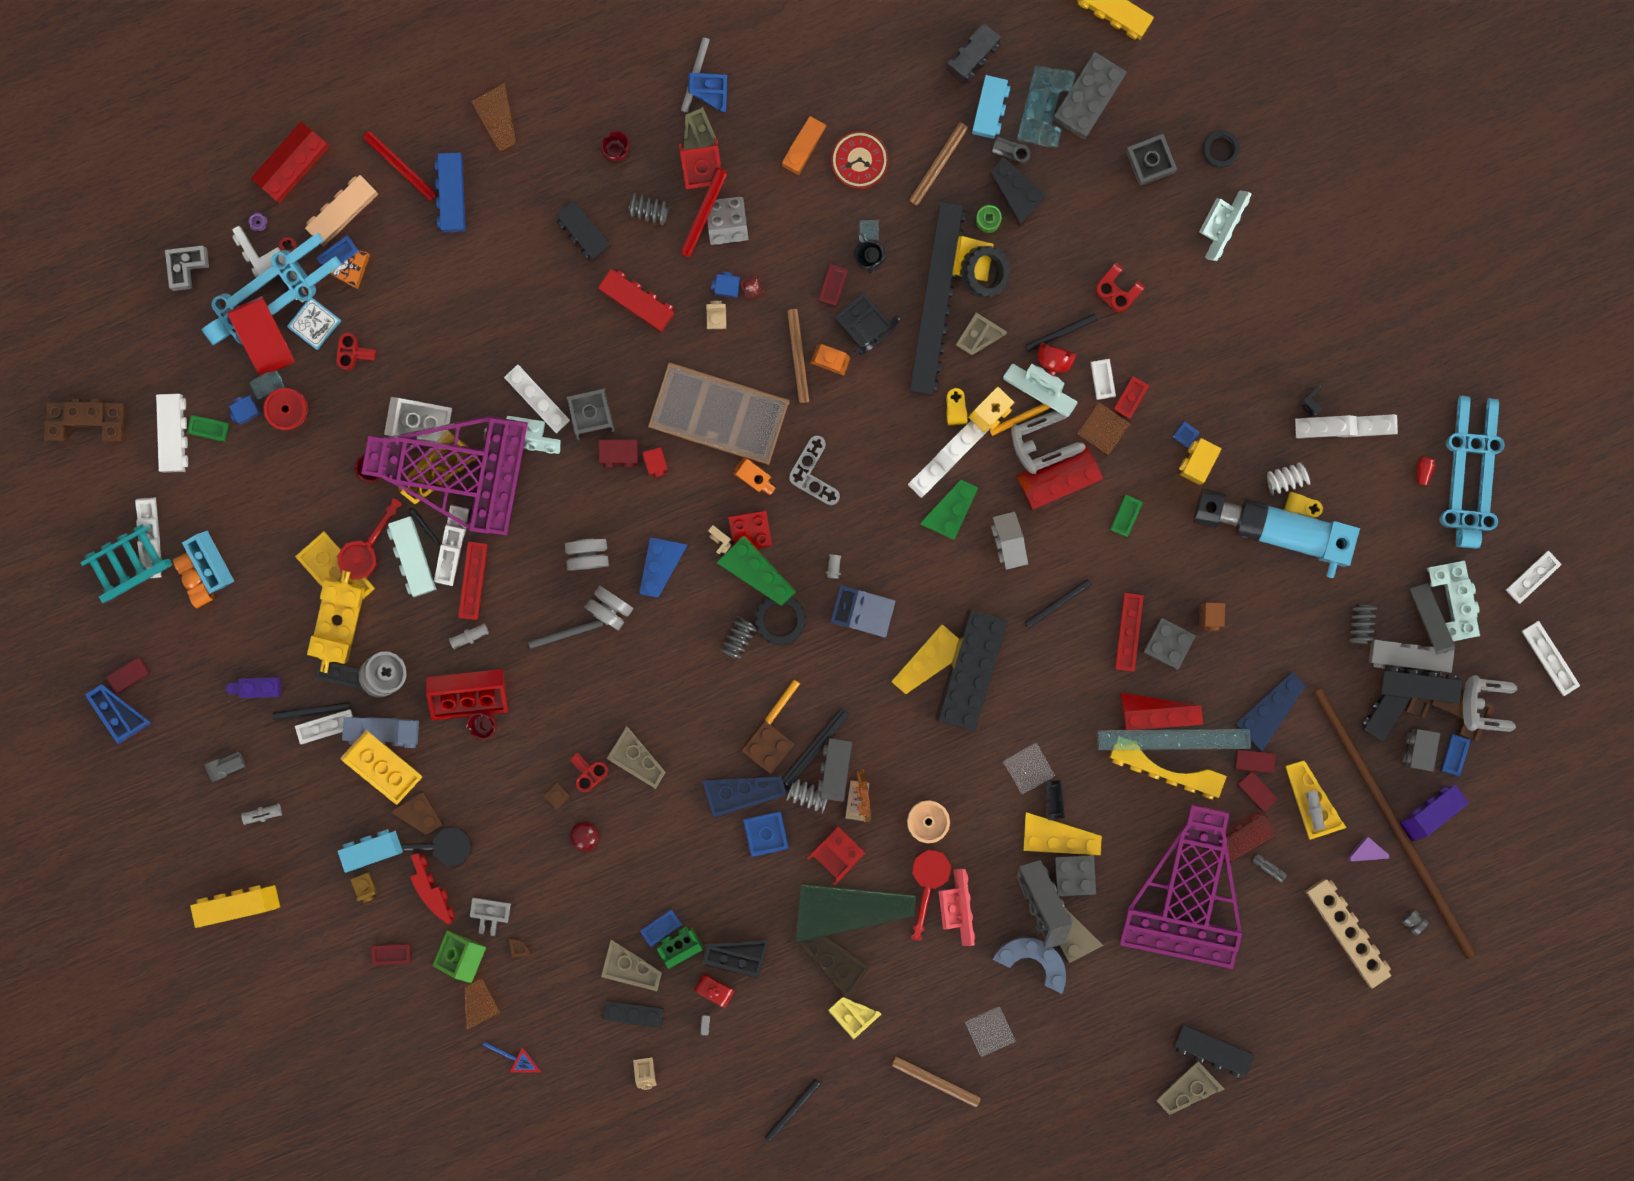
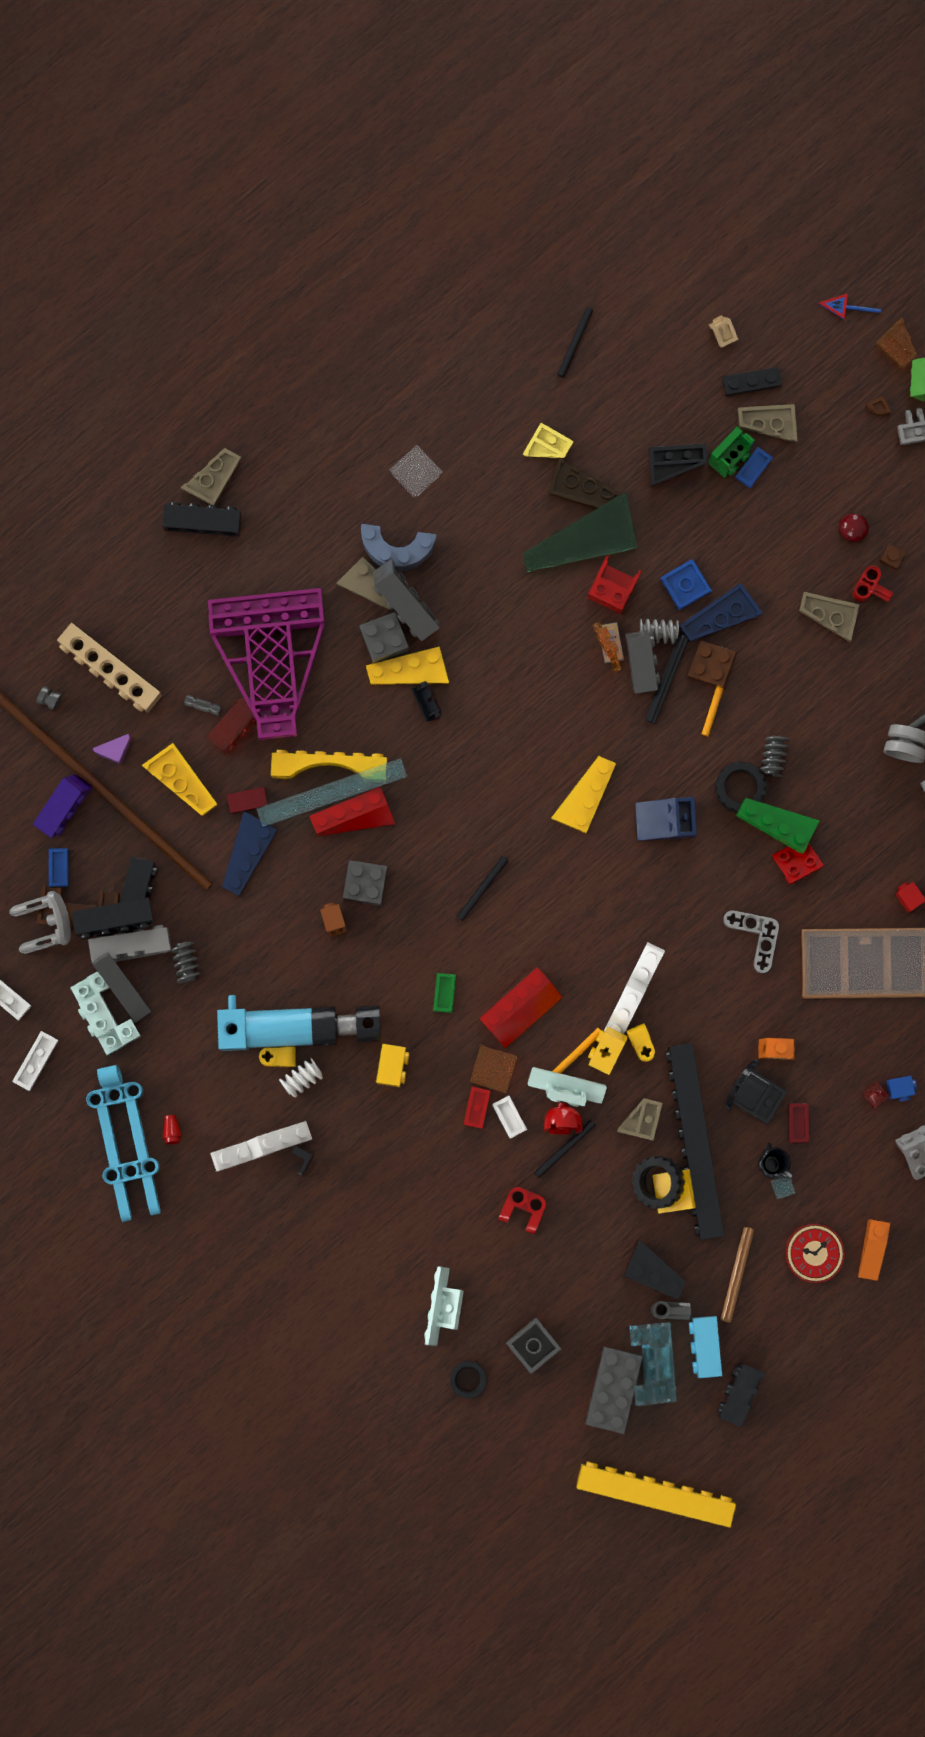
camera: 165 degrees right, 5 degrees down
(659, 564) = (872, 801): blue wing -> none
(705, 1024) = (682, 392): light grey tile -> none
(714, 990) = (685, 425): red beam -> none
(716, 315) = (900, 1056): tan bracket -> none
(718, 536) = (826, 846): tan bracket -> none
(747, 471) = (821, 914): orange torso -> none
(798, 355) = (809, 1043): medium nougat axle -> none
(833, 566) = (707, 853): light grey pin -> none
(931, 871) = (520, 599): red piece -> none
(936, 829) = (544, 633): light nougat wheel -> none
(936, 1082) = (451, 409): medium nougat axle -> none
(951, 511) = (612, 943): green wing -> none
(956, 908) = (485, 573): coral bracket -> none
(971, 670) = (544, 797): black brick -> none
(988, 219) = (671, 1235): bright green wheel -> none
(1009, 540) = (549, 931): light grey brick -> none
(1023, 449) = (560, 1026): light grey piece -> none
(1028, 768) = (459, 724): clear tile -> none
(1129, 632) = (406, 882): red plate -> none
(1186, 434) = (412, 1089): blue tile -> none
(1257, 791) = (236, 772): dark red tile -> none
(1315, 810) = (176, 770): light grey pin -> none
(1421, 749) = (93, 859): dark grey brick -> none

